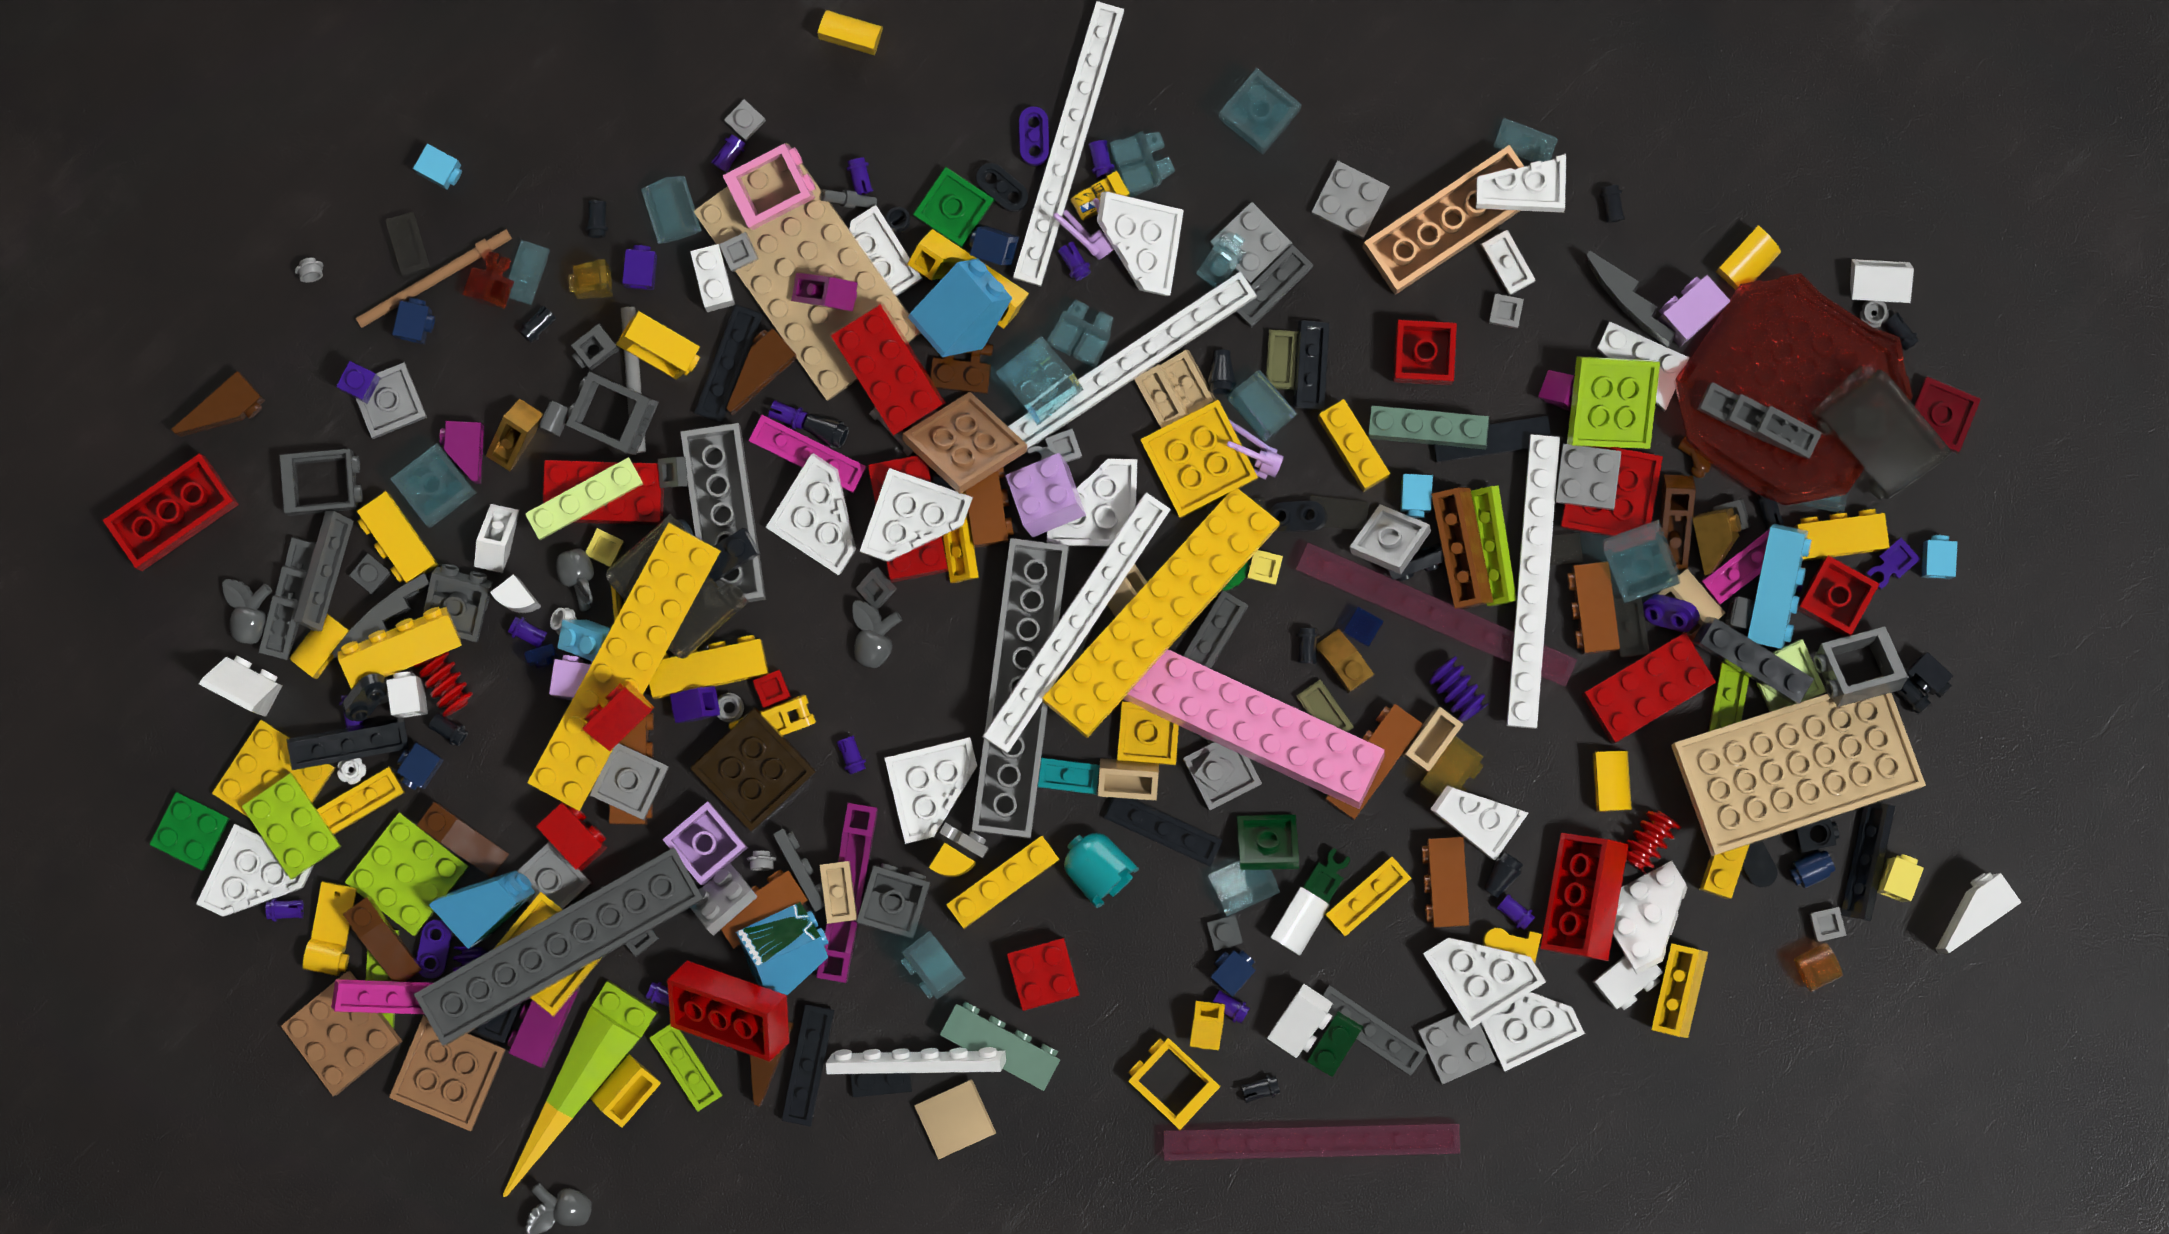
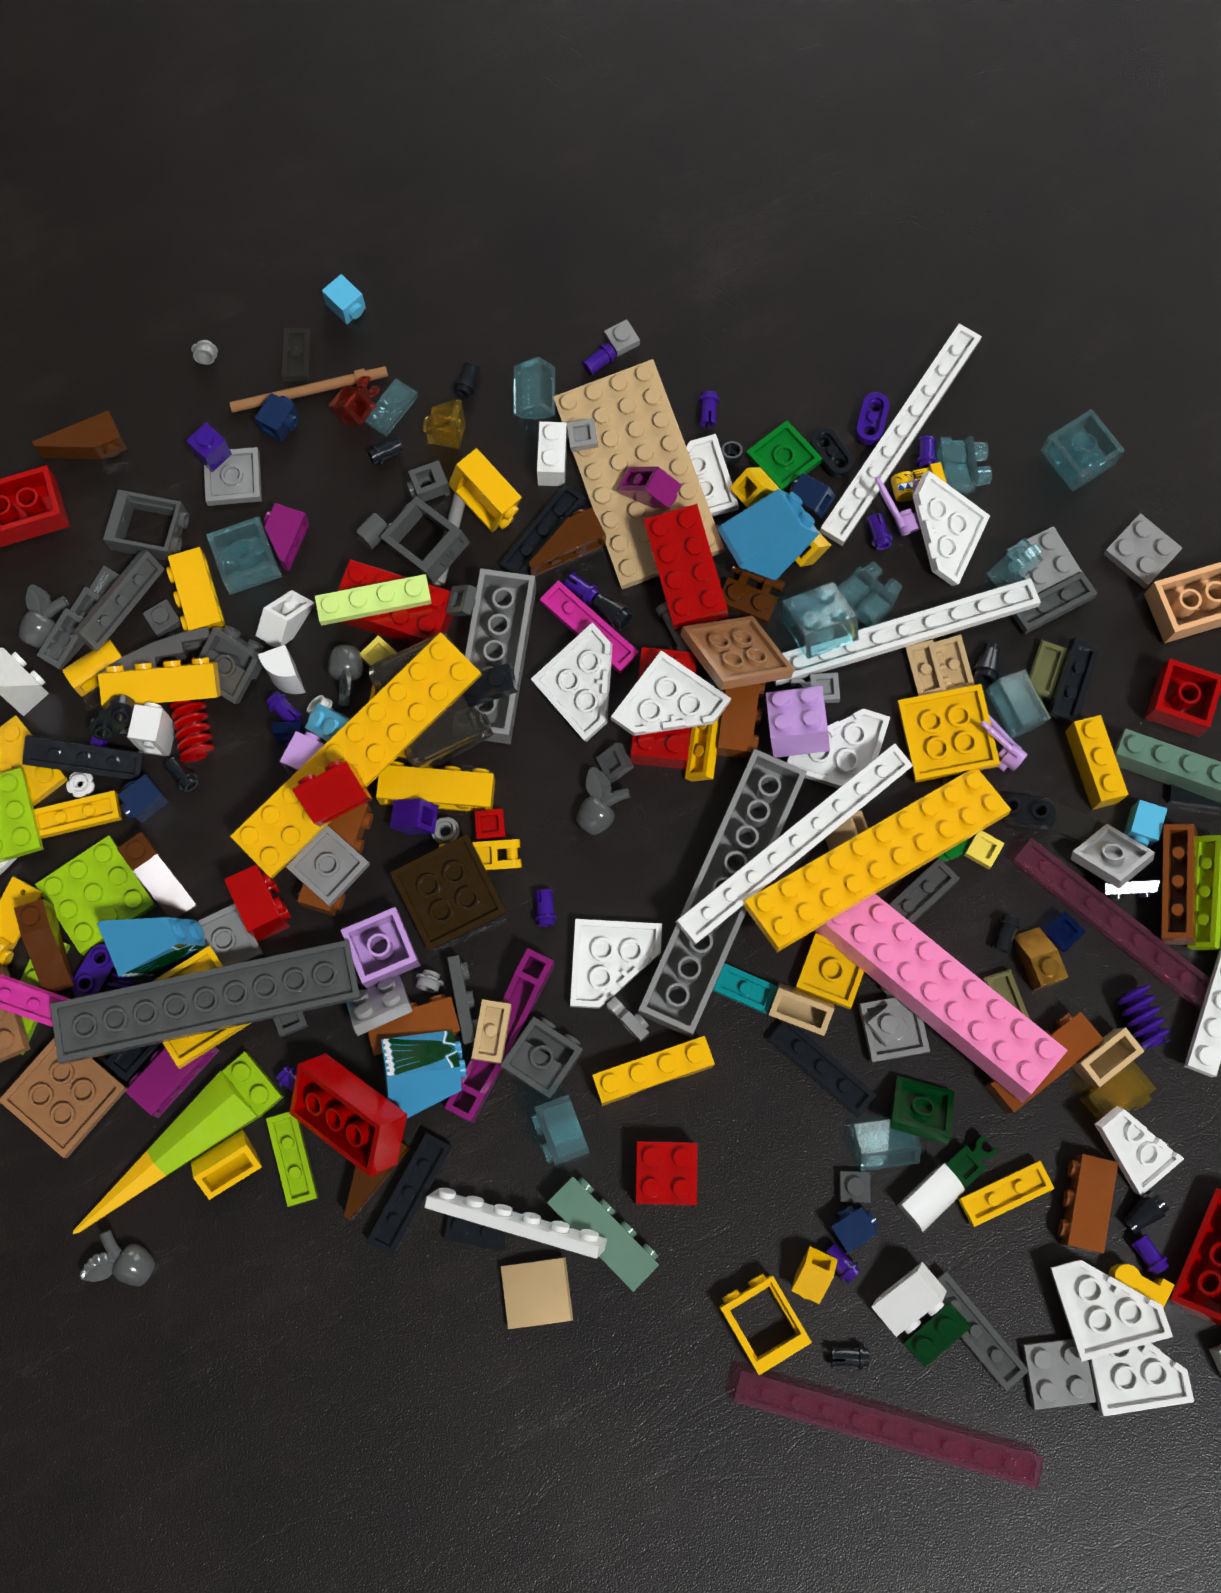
camera: 15 degrees right, 10 degrees down
(514, 434) = (332, 534): pearl gold slope -> none
(640, 268) = (490, 429): dark purple brick -> none
(742, 197) = (630, 406): bright pink window -> none
(848, 198) = (691, 420): dark grey bar -> none
(849, 32) = (734, 292): yellow brick -> none
(951, 862) = (609, 1036): yellow brick -> none
(1098, 867) = (750, 1083): teal cylinder -> none

